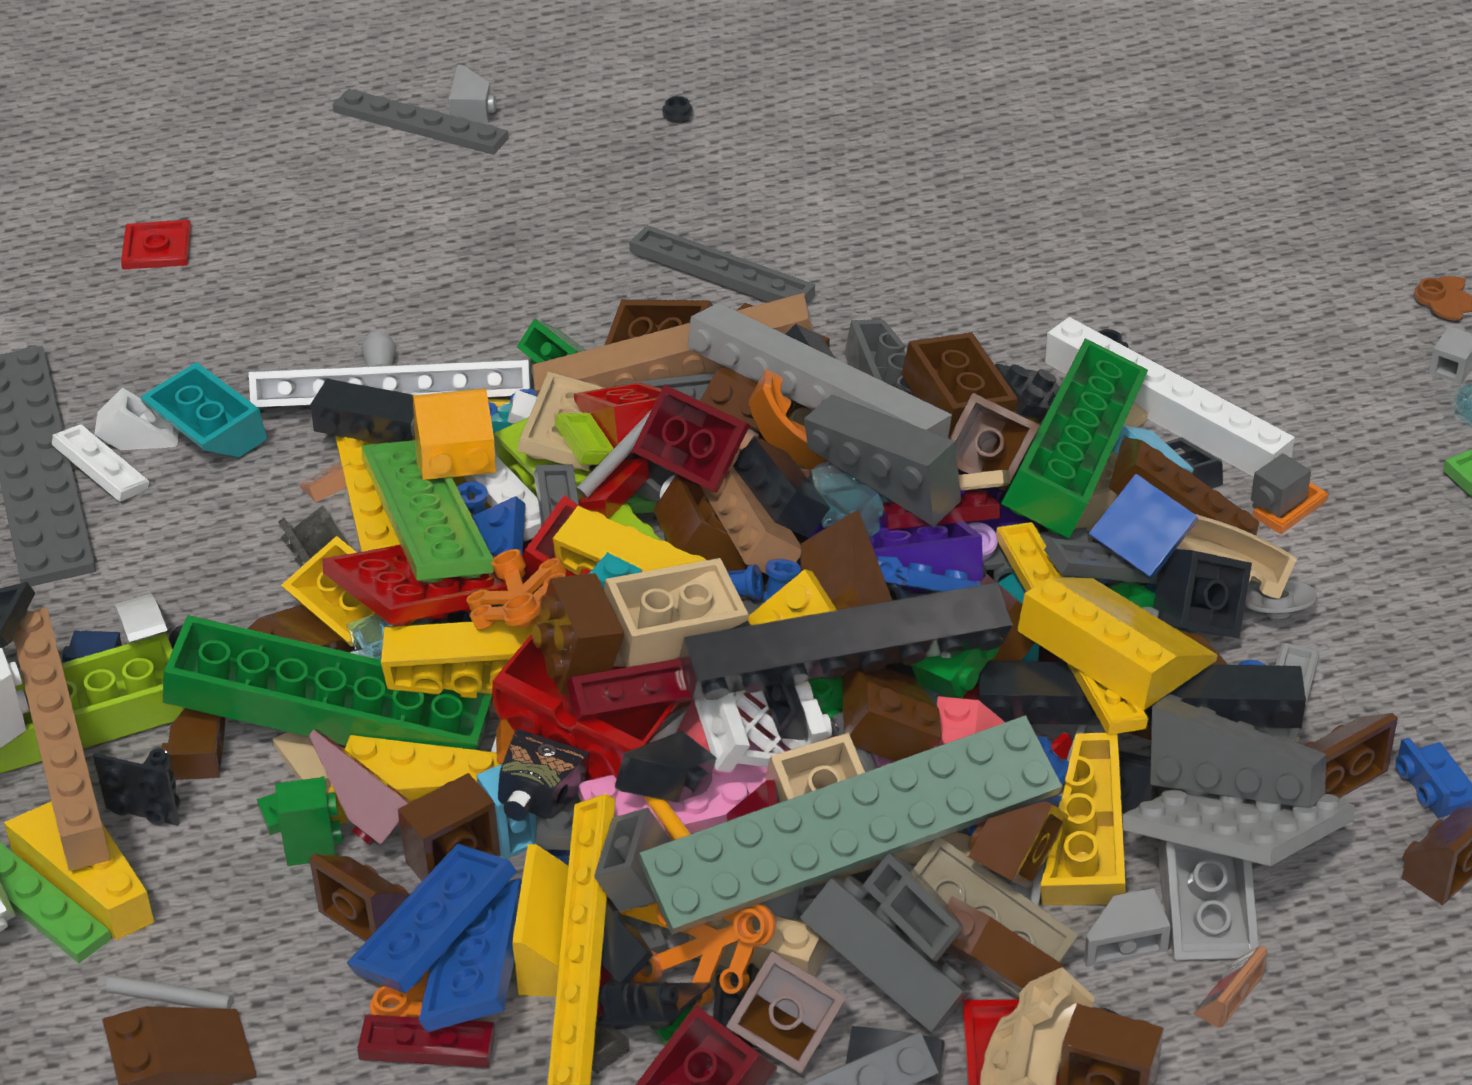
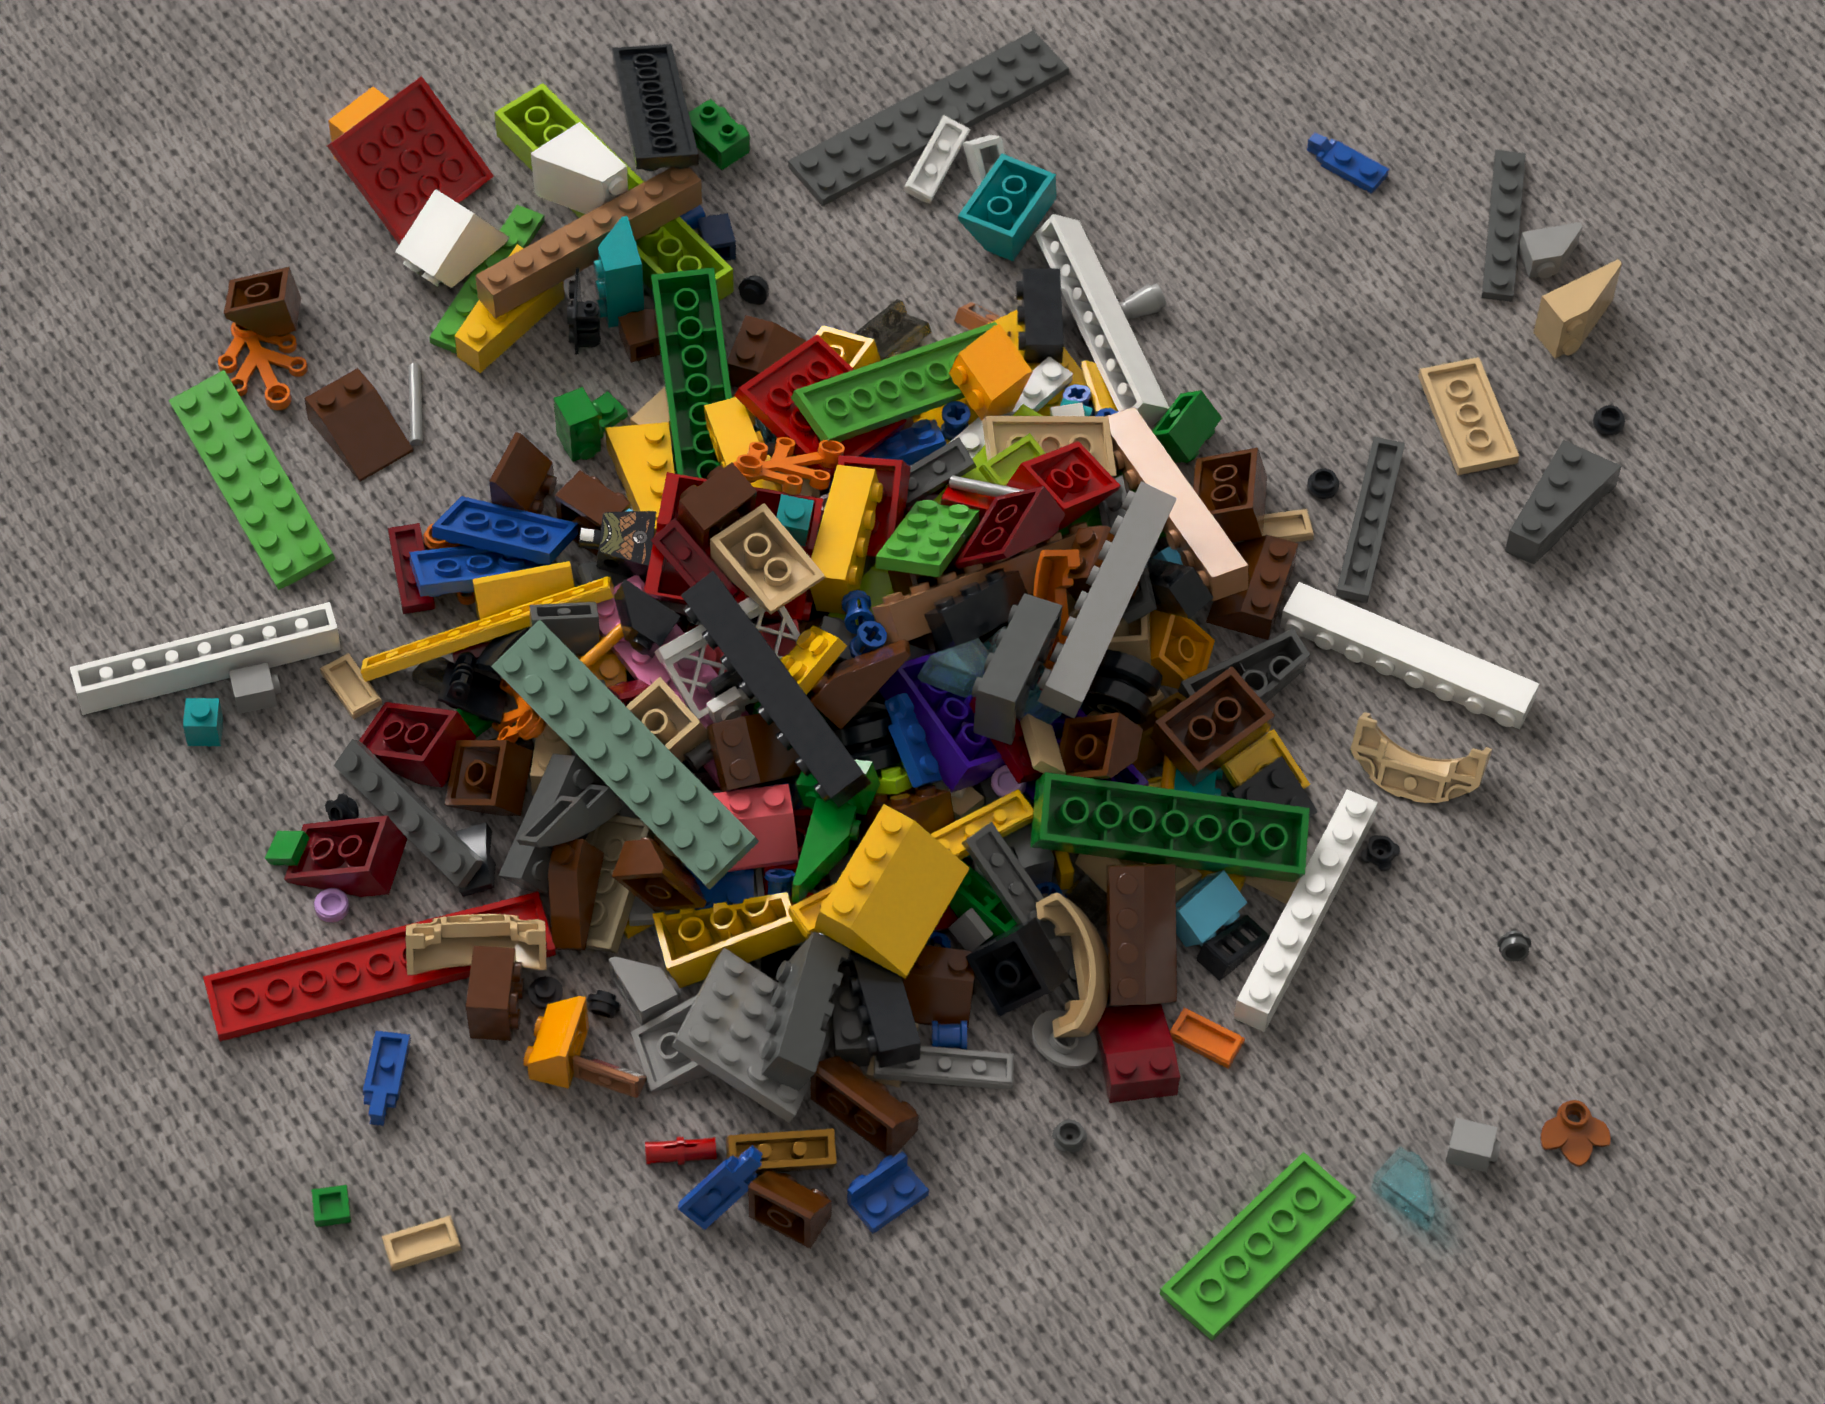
camera: 70 degrees right, 15 degrees up
(115, 714) = (619, 274): none -> teal slope
(140, 618) = (742, 247): white slope -> none
(156, 244) = (1239, 95): red tile -> none
(286, 195) = (1347, 163): none -> blue hinge
(362, 793) = (605, 438): slope -> none
(560, 87) = (1574, 309): none -> tan slope
(631, 185) = (1468, 416): none -> tan plate
(664, 288) = (1323, 483): none -> black plate
(673, 507) = (927, 538): none -> bright green plate
(758, 150) = (1563, 495): none -> dark grey wedge
(902, 269) = (1409, 656): none -> white brick
(1033, 298) = (1414, 775): none -> tan windscreen
(1036, 681) = (824, 844): none -> green slope
(1136, 971) = (603, 1004): none -> black plate
(1143, 526) = (1036, 890): tile -> none
(1195, 1008) = (558, 1039): none -> light orange slope
(1238, 286) = (1514, 946): none -> dark grey plate
(1280, 485) = (1204, 1015): dark grey brick -> none
(1322, 544) = (1137, 1053): none -> dark red slope
(1349, 960) = (680, 1150): none -> red pin
(1380, 844) = (788, 1149): none -> pearl gold brick
(1391, 622) = (1071, 1128): none -> dark grey plate
(1430, 892) = (721, 1188): none -> blue hinge

